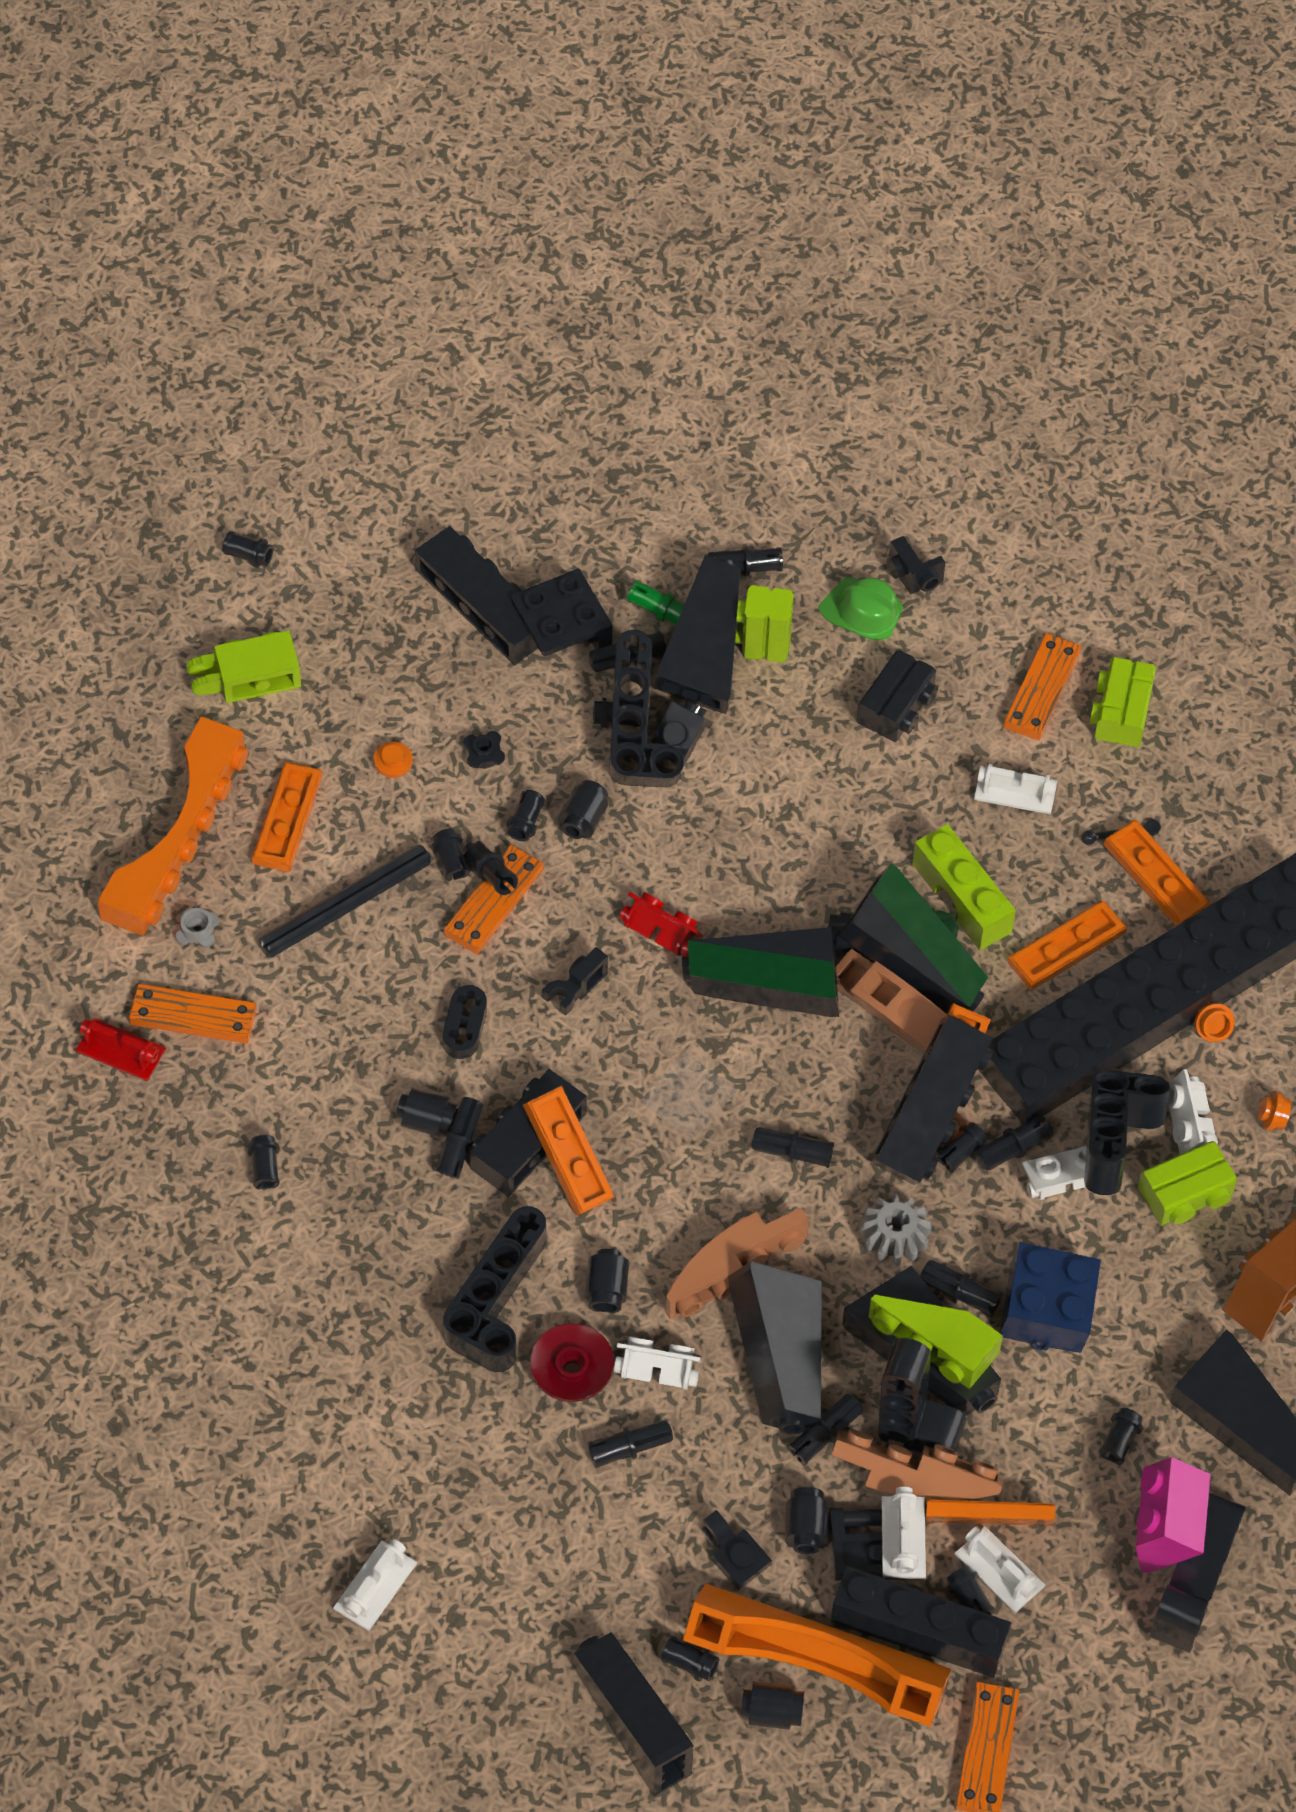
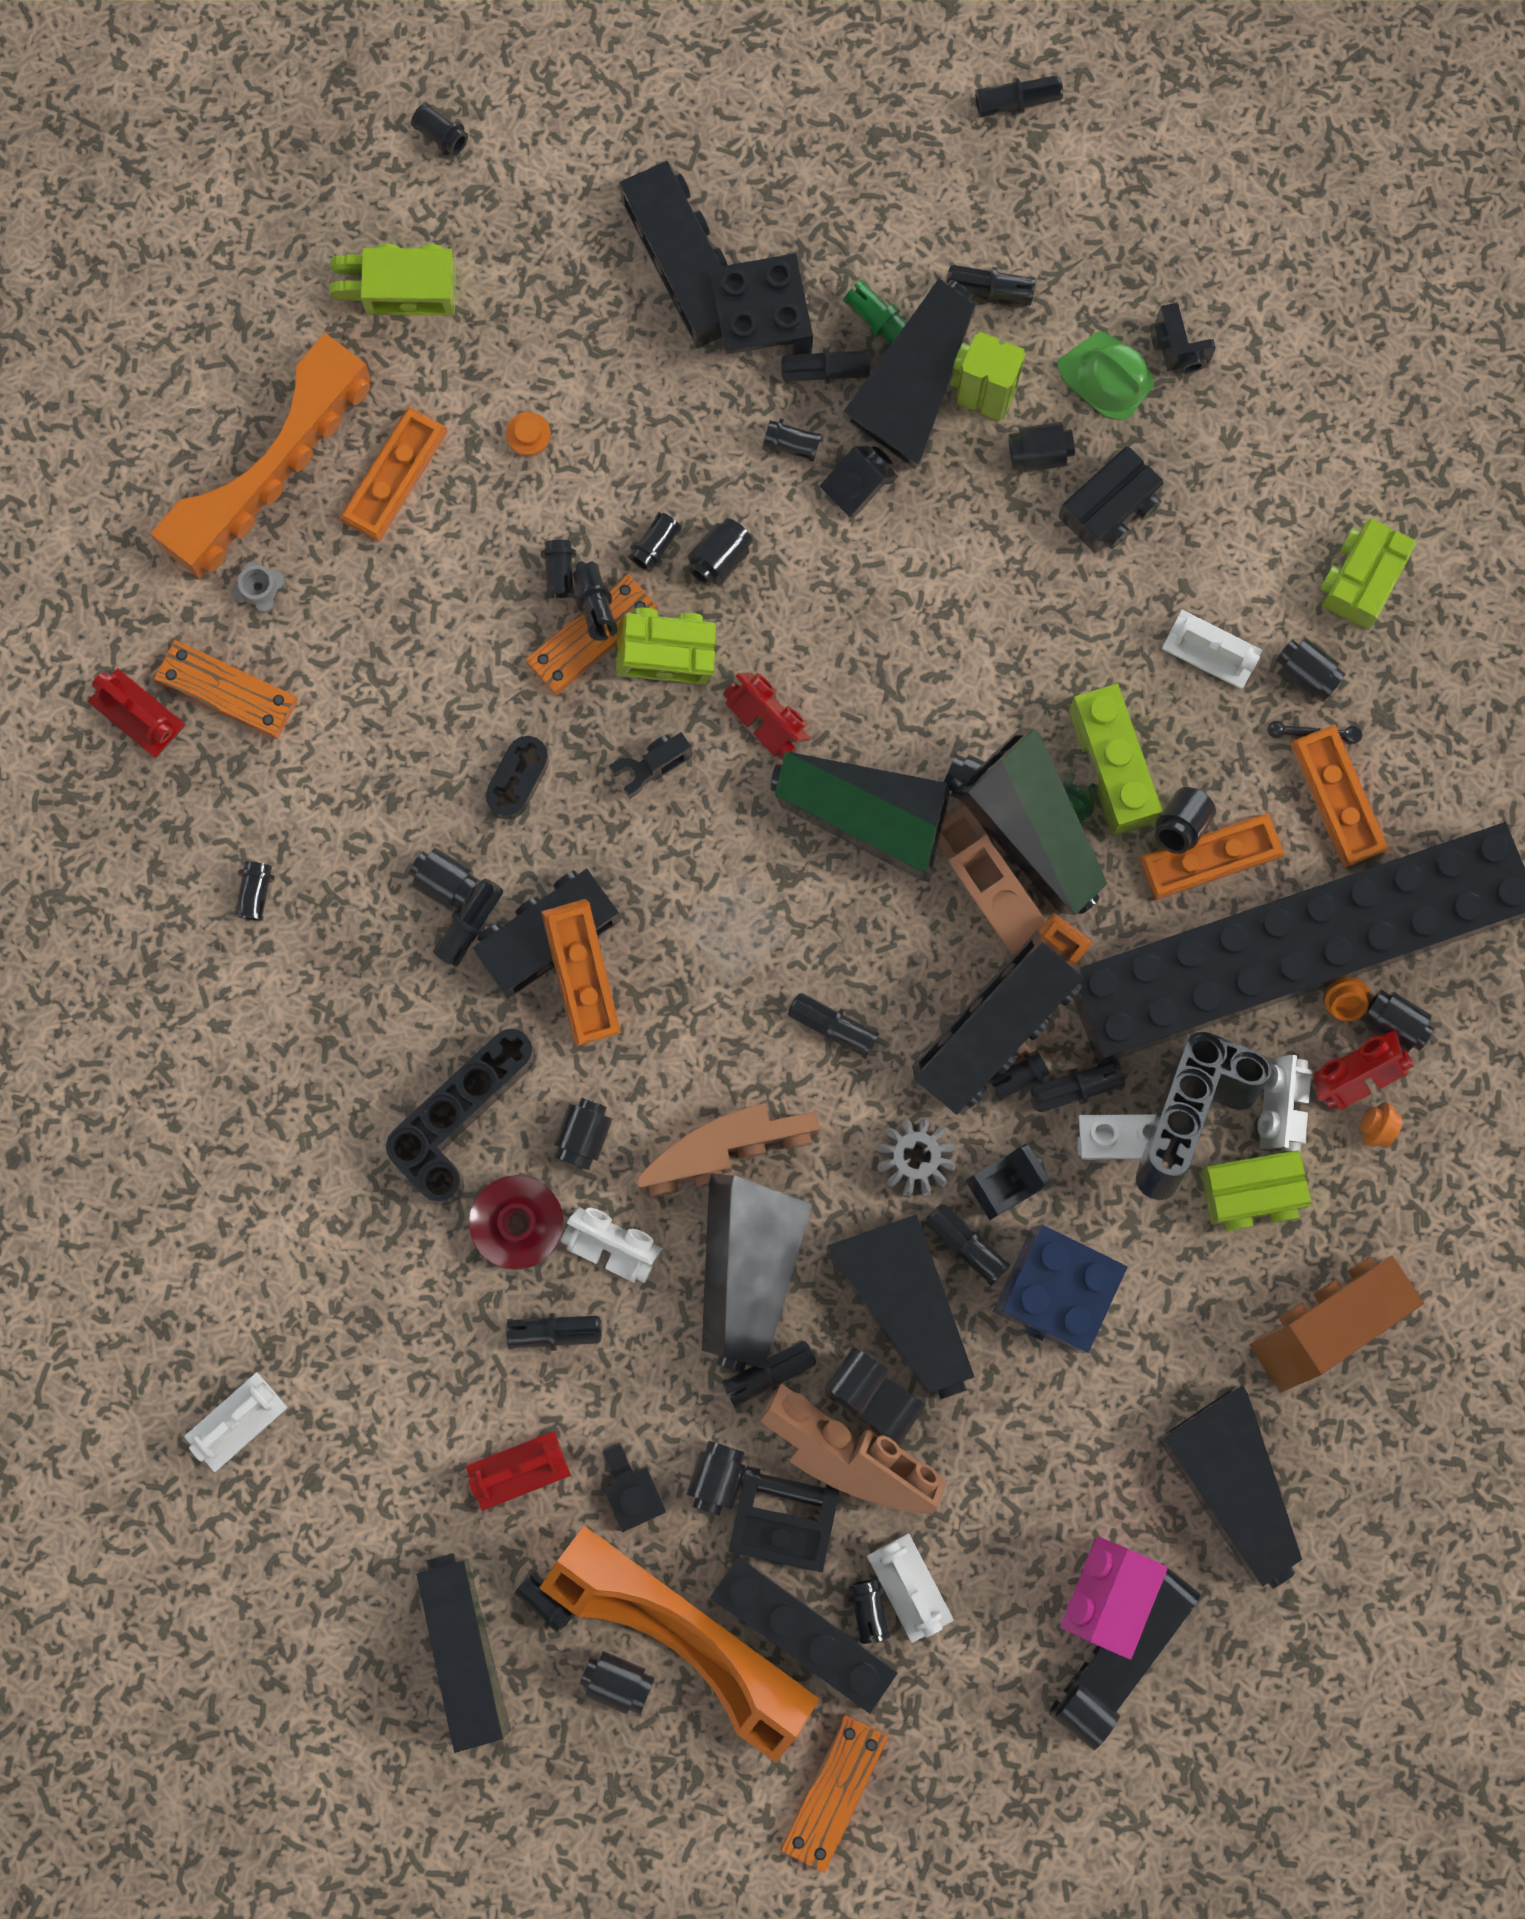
camera: 15 degrees right, 20 degrees up
(344, 901) = (427, 595): black axle -> none
(484, 759) = (636, 459): black plate -> none
(562, 889) = (665, 647): none -> lime brick
(634, 1561) = (517, 1471): none -> red hinge
(636, 709) = (812, 447): black beam -> none
(721, 419) = (1018, 95): none -> black axle
(825, 670) = (1041, 447): none -> black brick
(903, 1535) = (812, 1533): white hinge -> none
(957, 1339) = (929, 1323): lime slope -> none
(981, 1228) = (1008, 1181): none -> black bracket
(989, 1512) = (921, 1527): orange tile -> none
(1036, 917) = (1184, 820): none -> black brick
(1042, 686) = (1281, 527): orange tile -> none
(1100, 784) = (1309, 669): none -> black brick
(1121, 1435) = (1089, 1468): black pin -> none
(1233, 1079) = (1343, 1080): none -> red hinge
(1262, 1028) = (1395, 1012): none -> black brick

